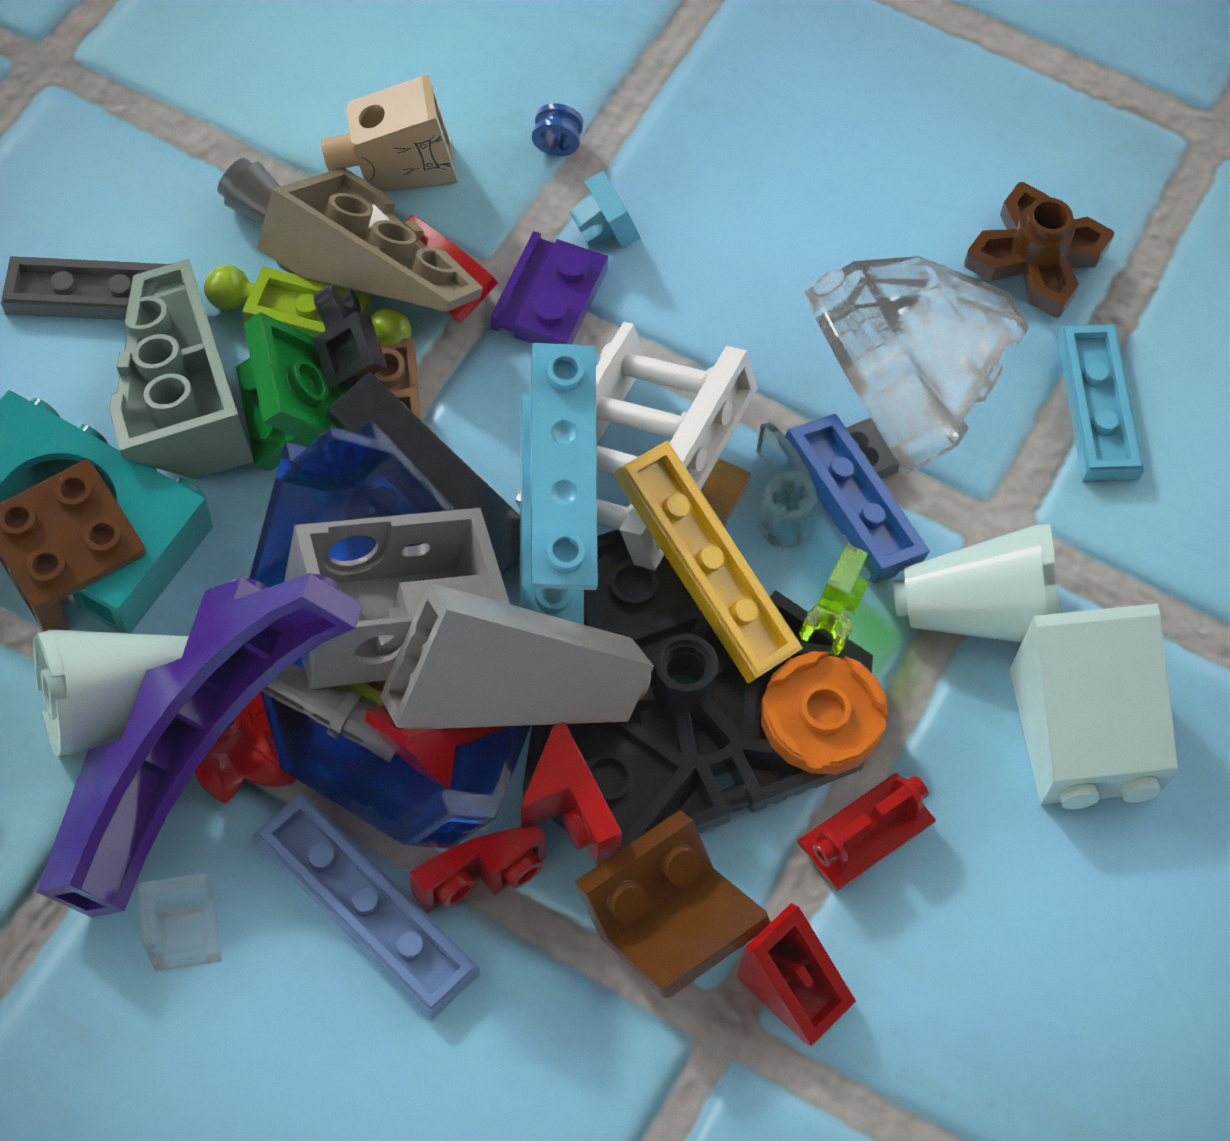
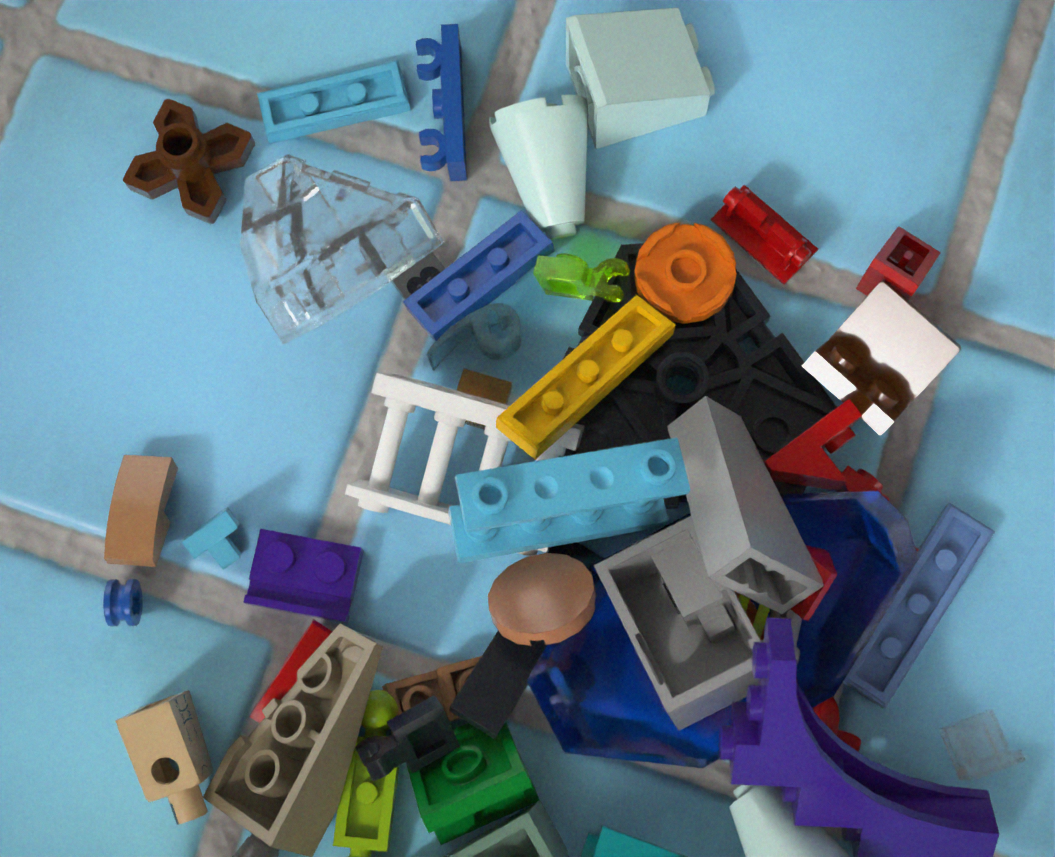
camera: 90 degrees left, 15 degrees up
(460, 468) = (542, 599): none -> nougat tile
(638, 147) = (136, 511): none -> medium nougat slope
(1082, 509) = (447, 103): none -> blue plate

